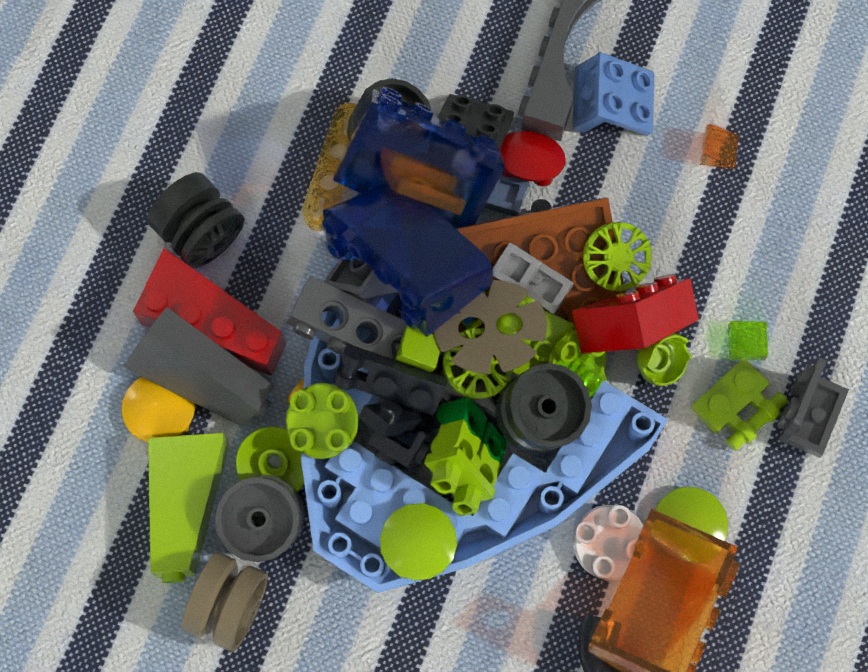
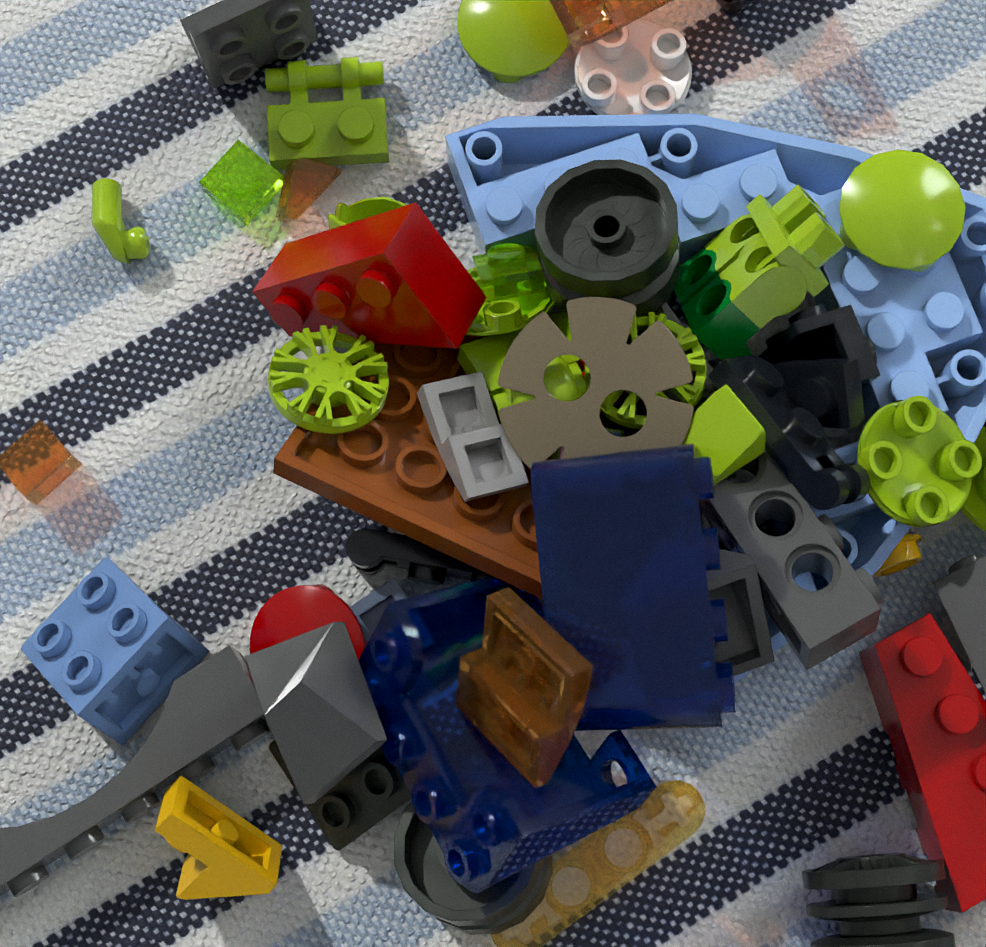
camera: 140 degrees left, 5 degrees up
(499, 53) = (223, 849): none -> yellow slope
(505, 120) = (317, 707): none -> dark grey slope
(714, 355) = (302, 186): none -> clear orange slope
(788, 270) = (109, 225): none -> lime arm

